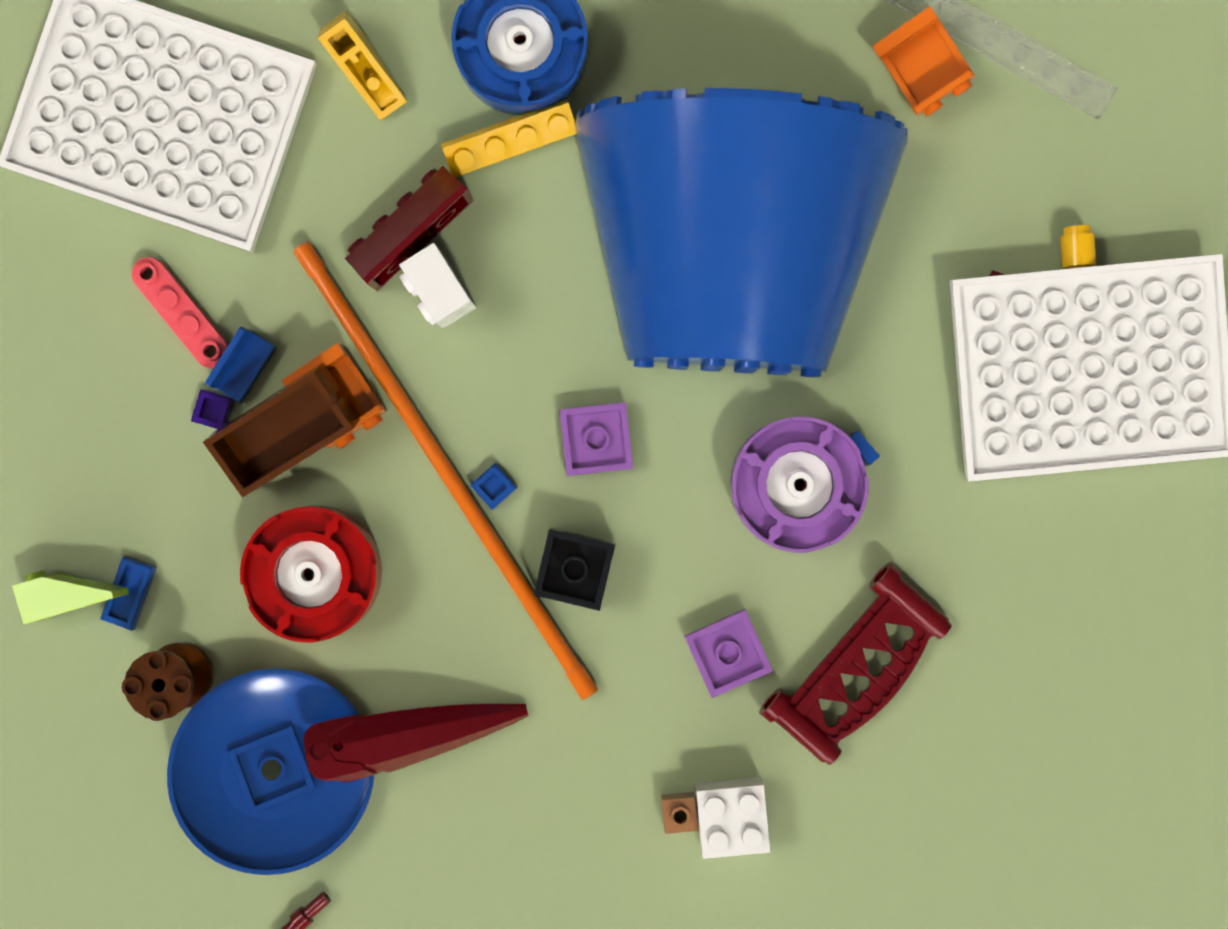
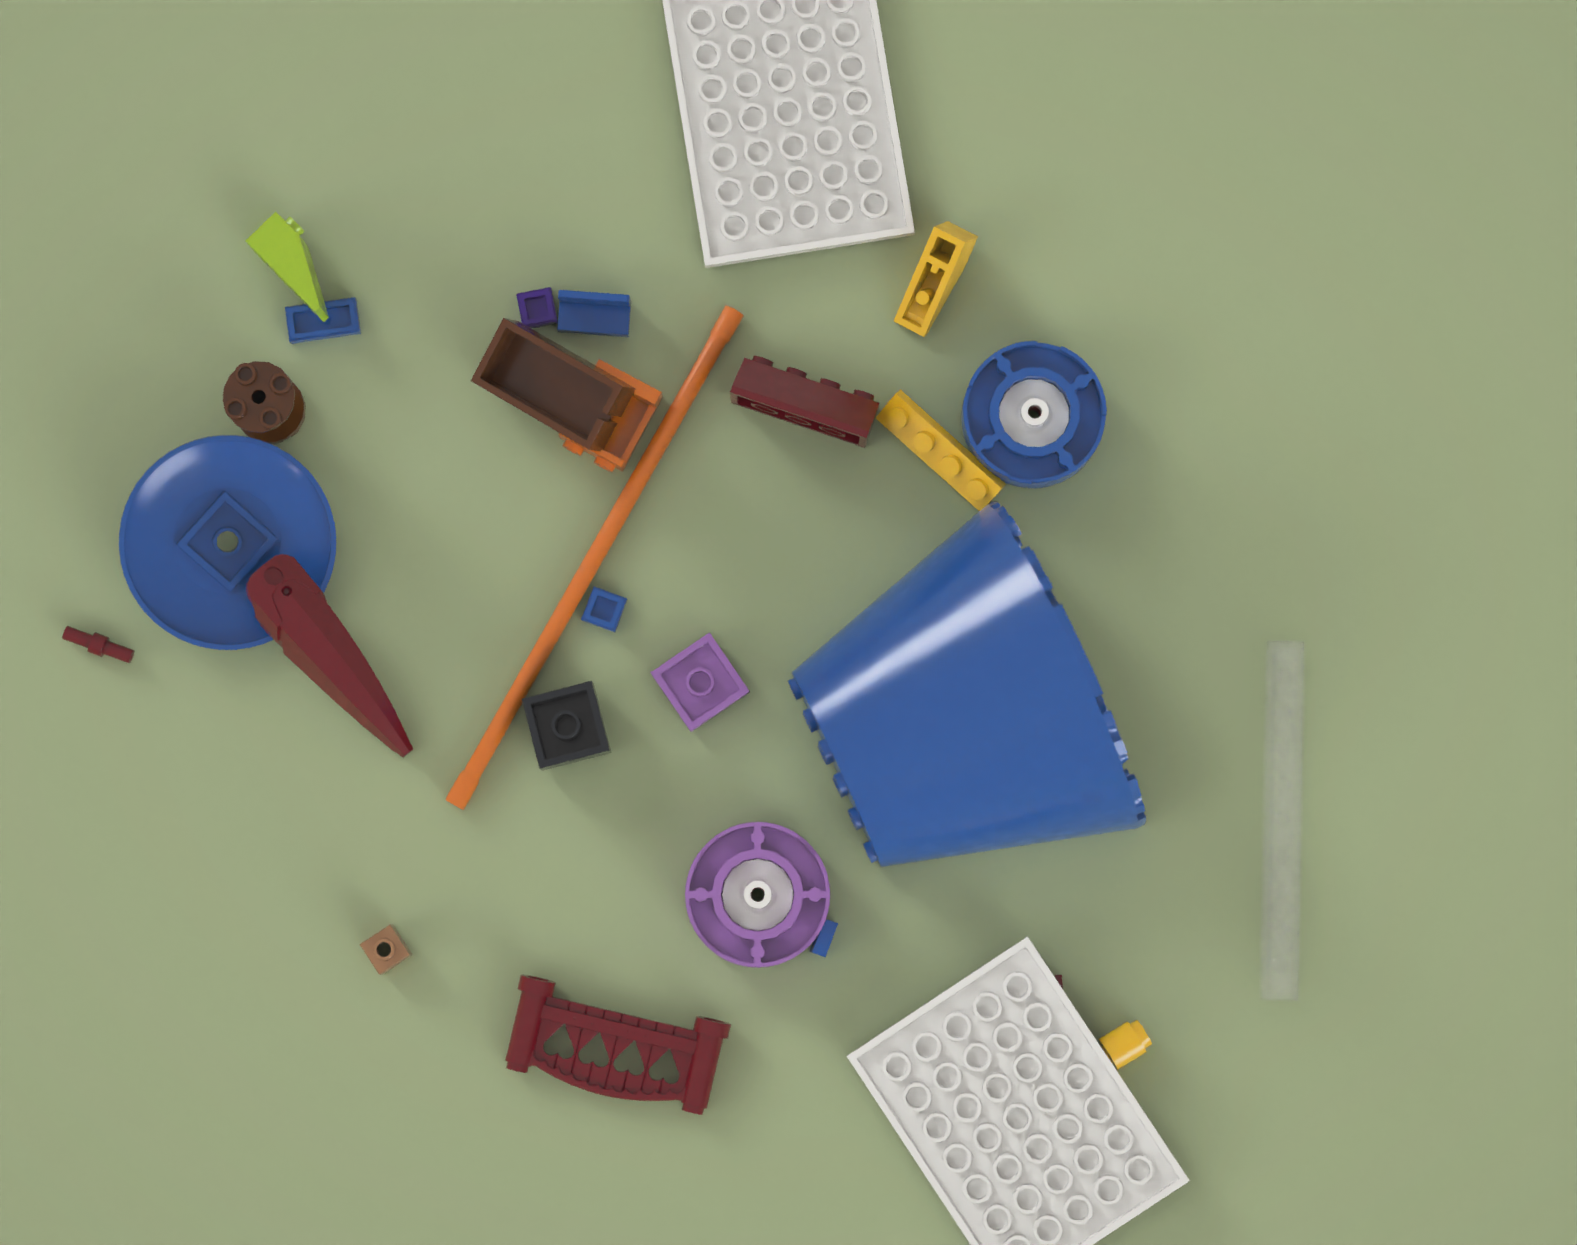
camera: 65 degrees right, 5 degrees down
(179, 311) = (613, 230): coral plate -> none
(279, 581) = (424, 447): red piece -> none
(437, 286) = (763, 456): white brick -> none
(728, 653) = (562, 915): medium lavender plate -> none
(732, 817) = (407, 1000): white brick -> none
(925, 62) = (1221, 803): orange panel -> none

